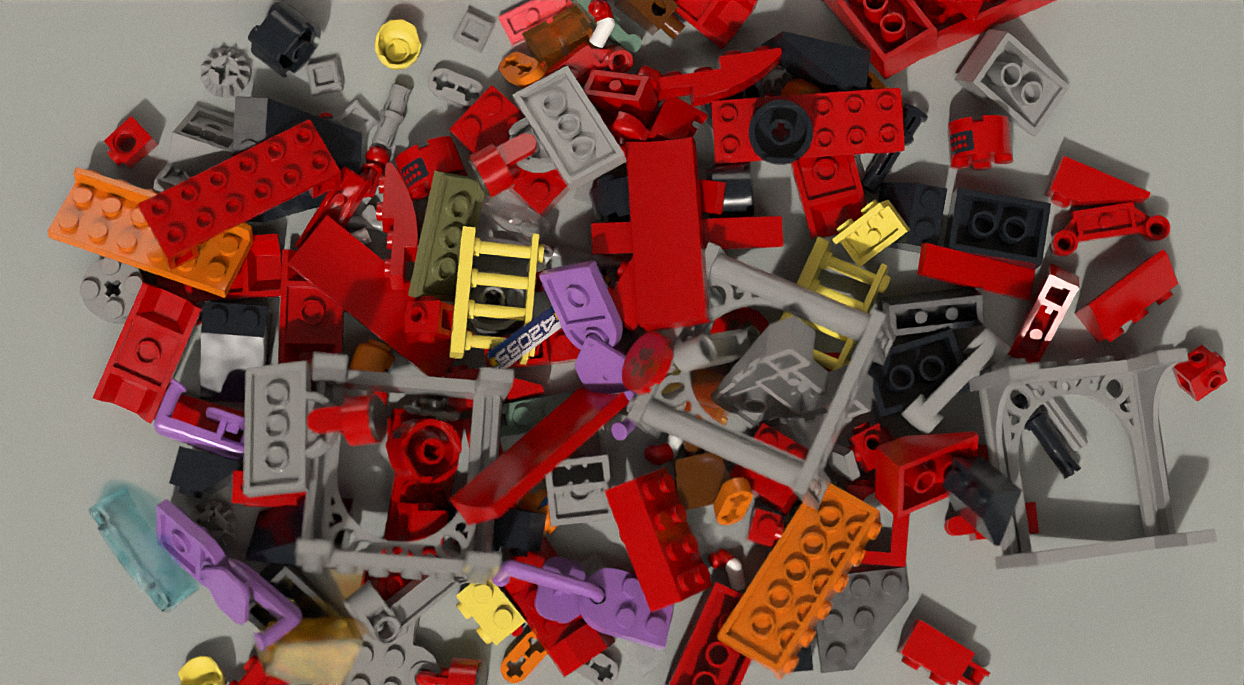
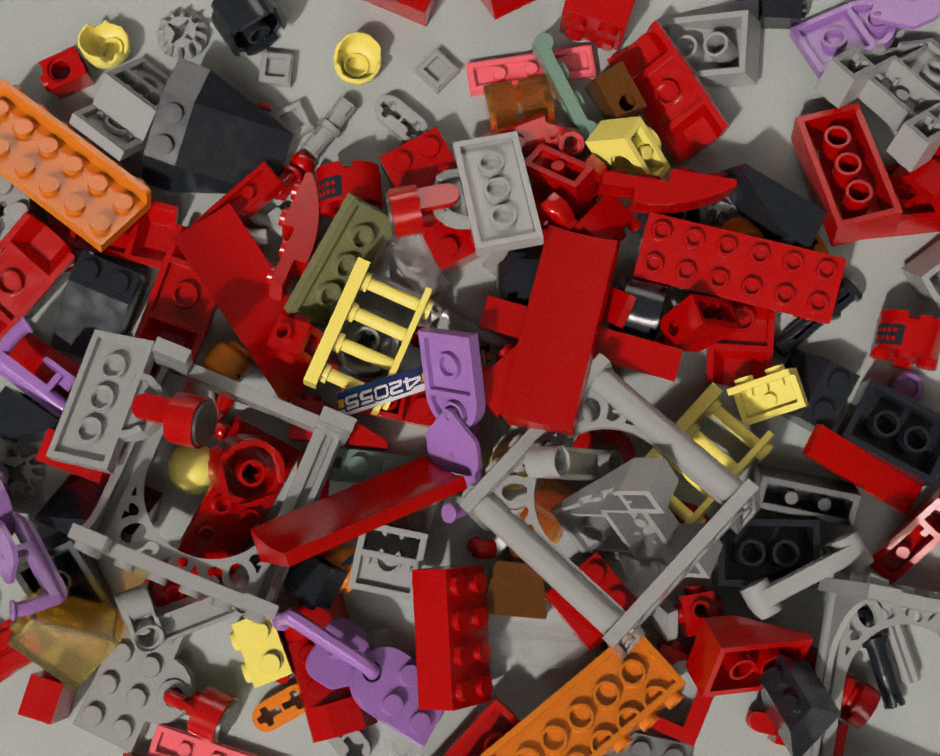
camera: 25 degrees right, 0 degrees up
(158, 105) = (104, 45): none -> light yellow hair
(239, 191) = (147, 151): red bracket -> none
(370, 468) = (190, 469): none -> light yellow hair
(420, 519) = (220, 537): red brick -> none
(434, 408) = (270, 430): clear smoke animal -> none
(521, 69) = (470, 121): orange beam -> none
(605, 22) = (569, 98): arm -> none
(647, 363) = (496, 455): red tile -> none
(673, 48) = (628, 146): none -> light yellow brick
(731, 565) = (518, 683): arm -> none
(732, 501) = (539, 622): orange beam -> none
(765, 528) = (563, 660): red brick -> none
(788, 188) = (698, 323): none -> red torso
(794, 120) = (727, 256): black brick -> none
(994, 182) = (908, 385): none -> medium lavender tile
(1037, 479) = (858, 701): none -> red wheel

